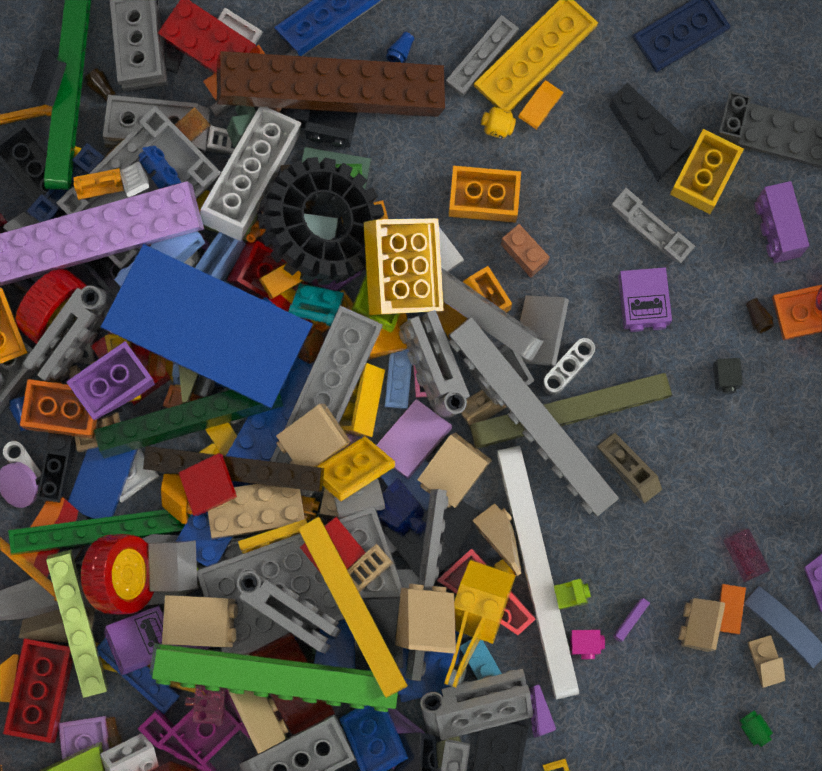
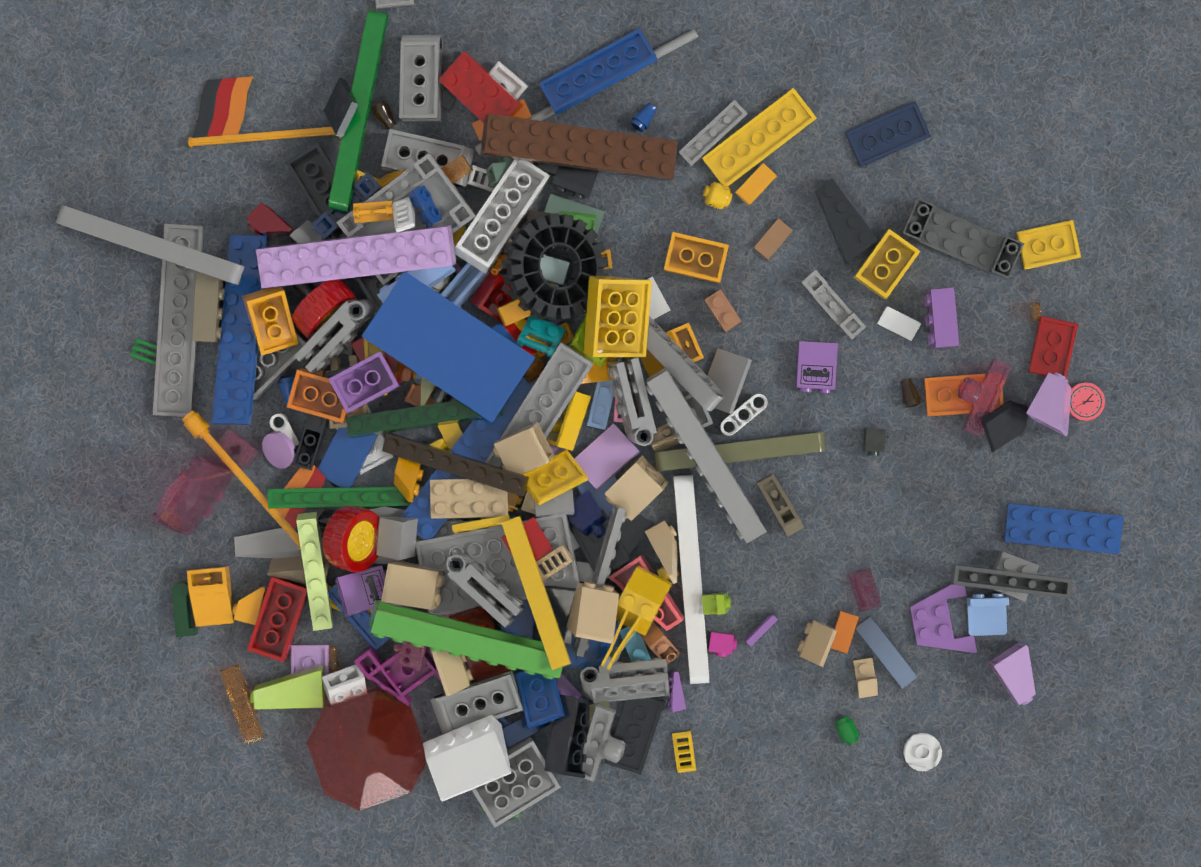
camera: 15 degrees right, 10 degrees up
(207, 484) = (433, 475): red tile -> none
(511, 653) = (660, 644): none -> nougat slope
(570, 164) = (773, 239): none -> medium nougat tile
(732, 237) = (899, 323): none -> white slope

